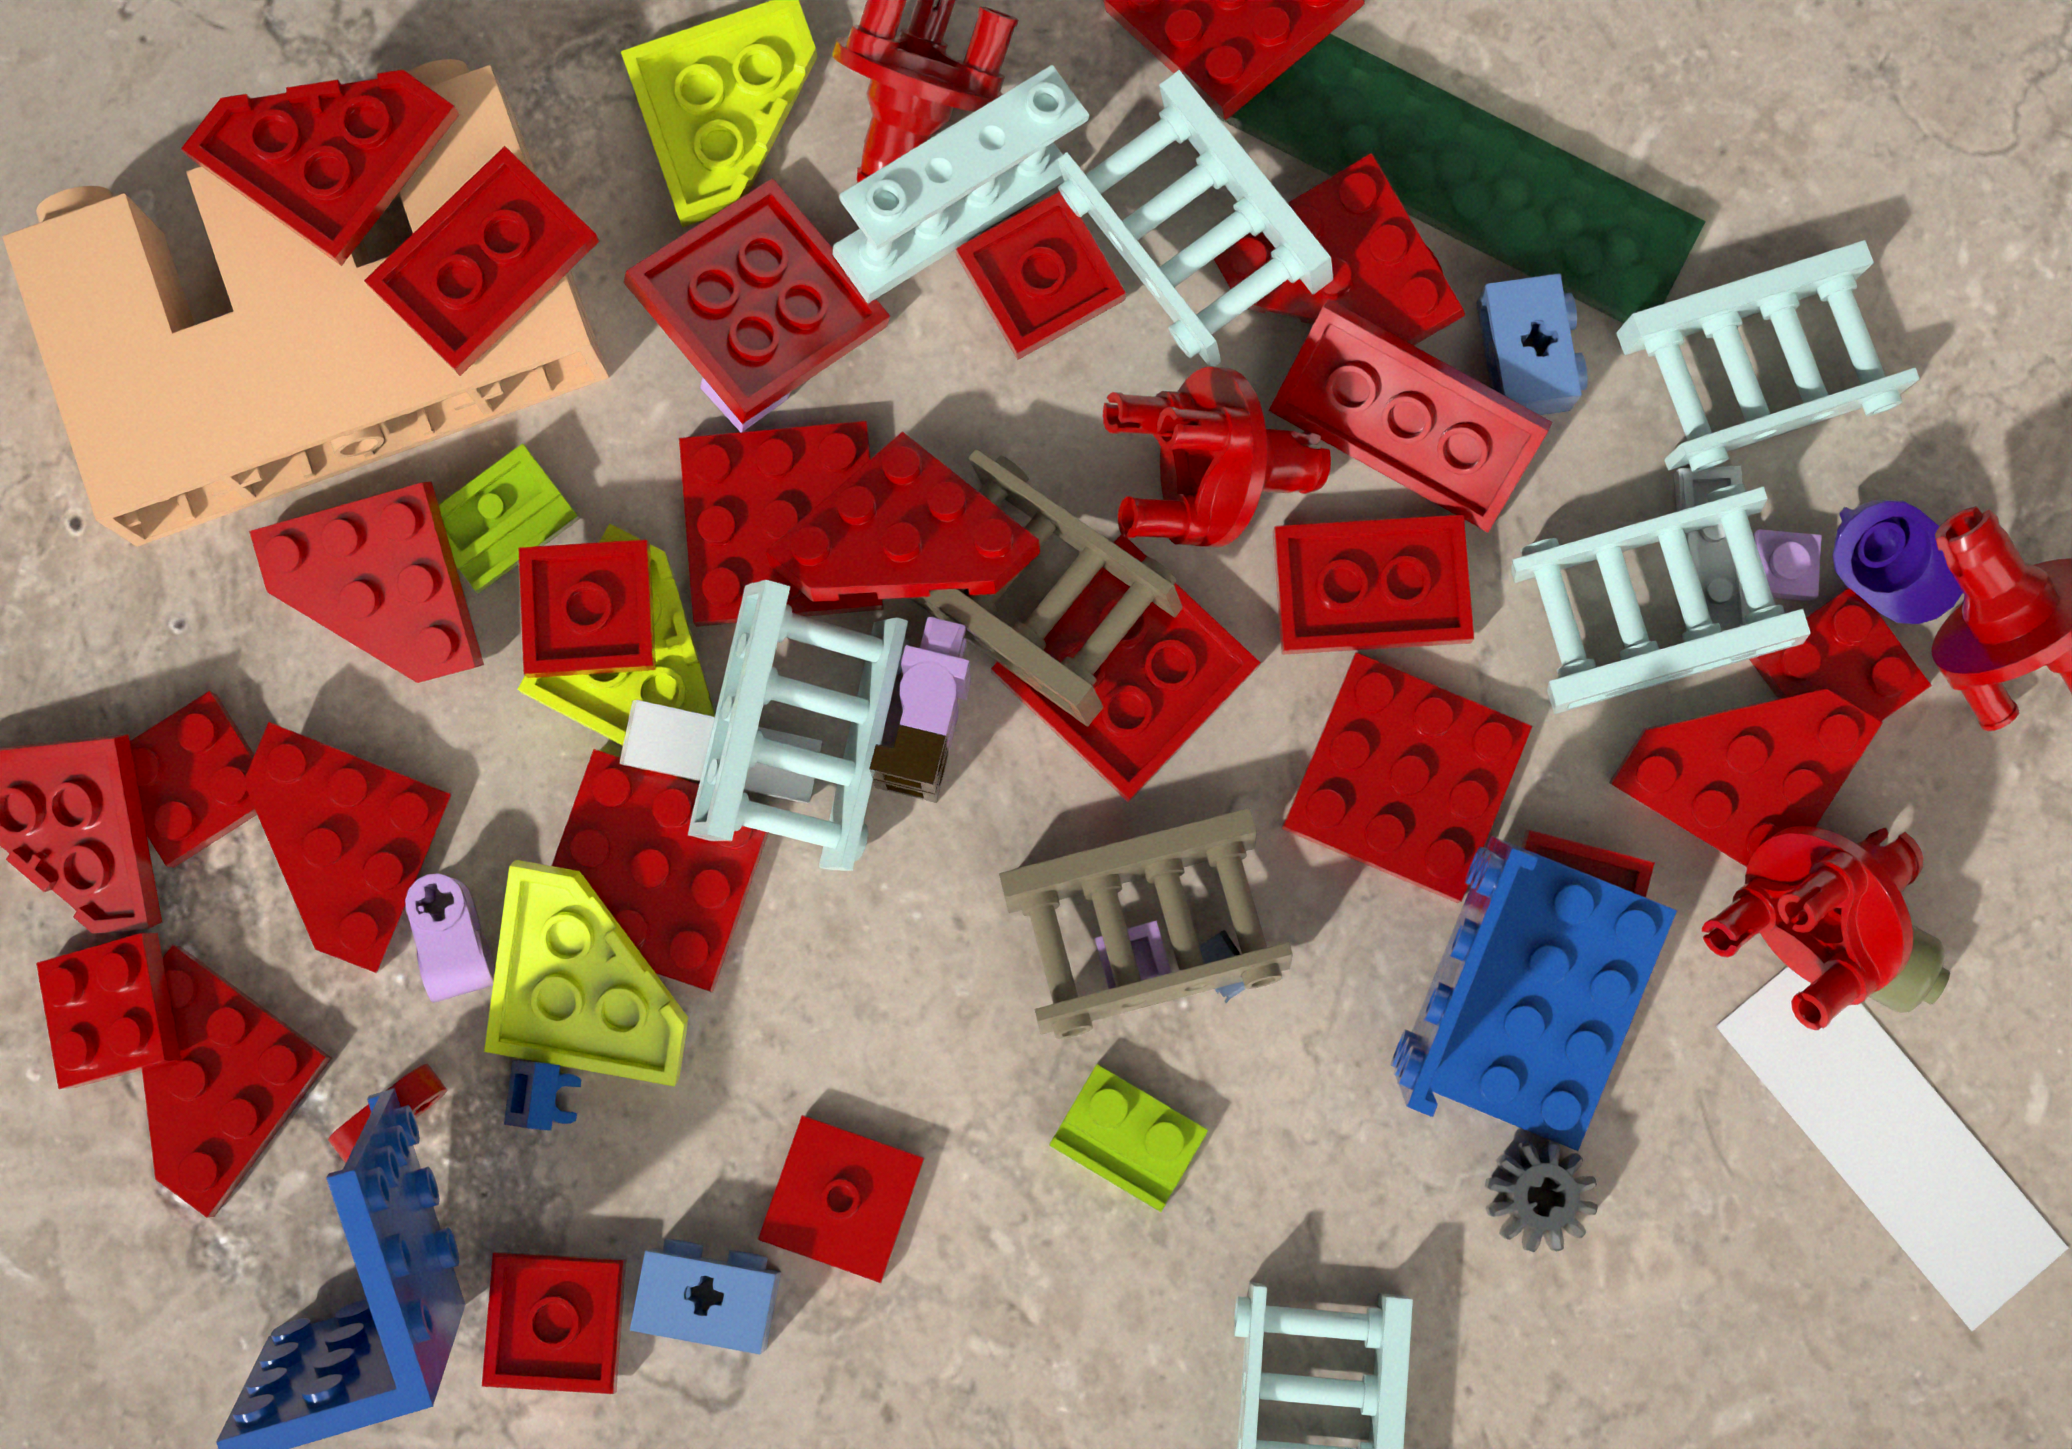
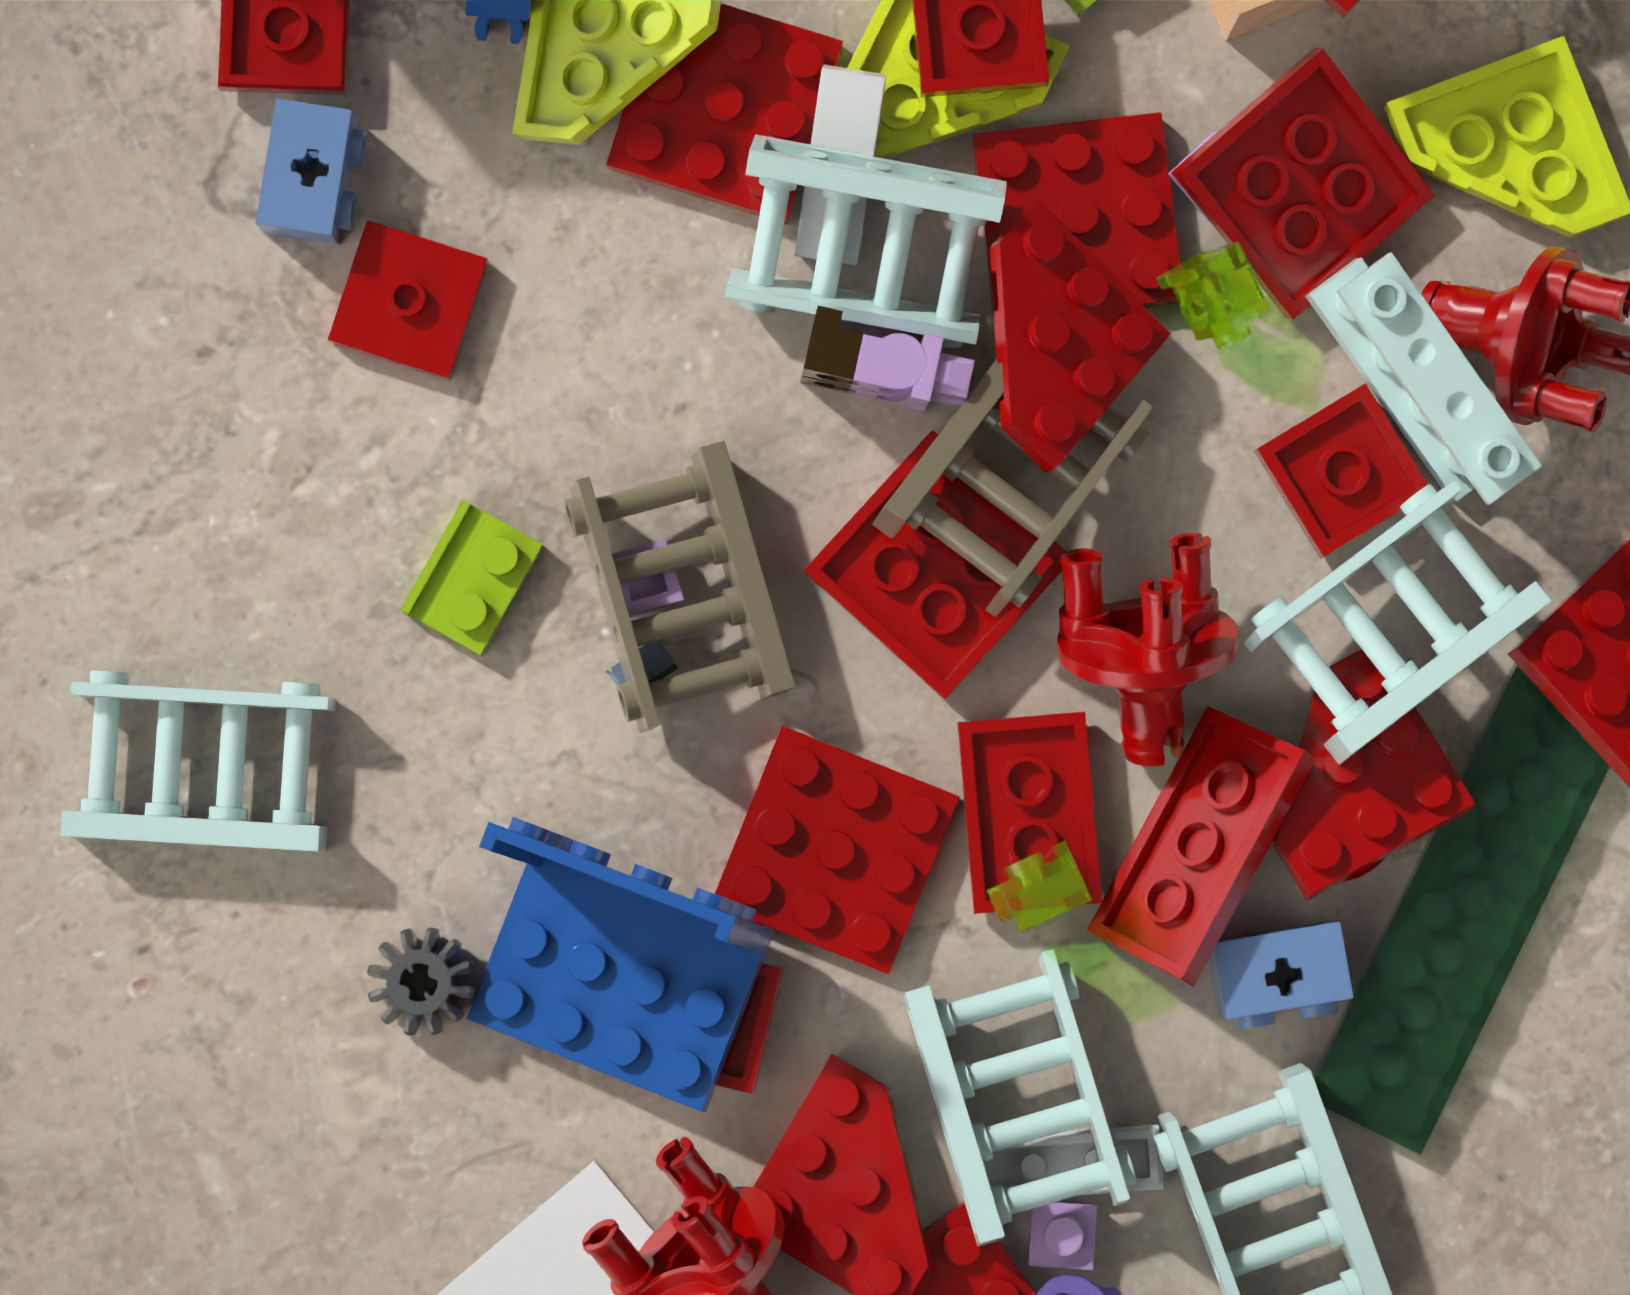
camera: 85 degrees right, 5 degrees up
(864, 385) = (1217, 294): none -> clear neon green brick
(1455, 569) = (1039, 889): none -> clear neon green brick

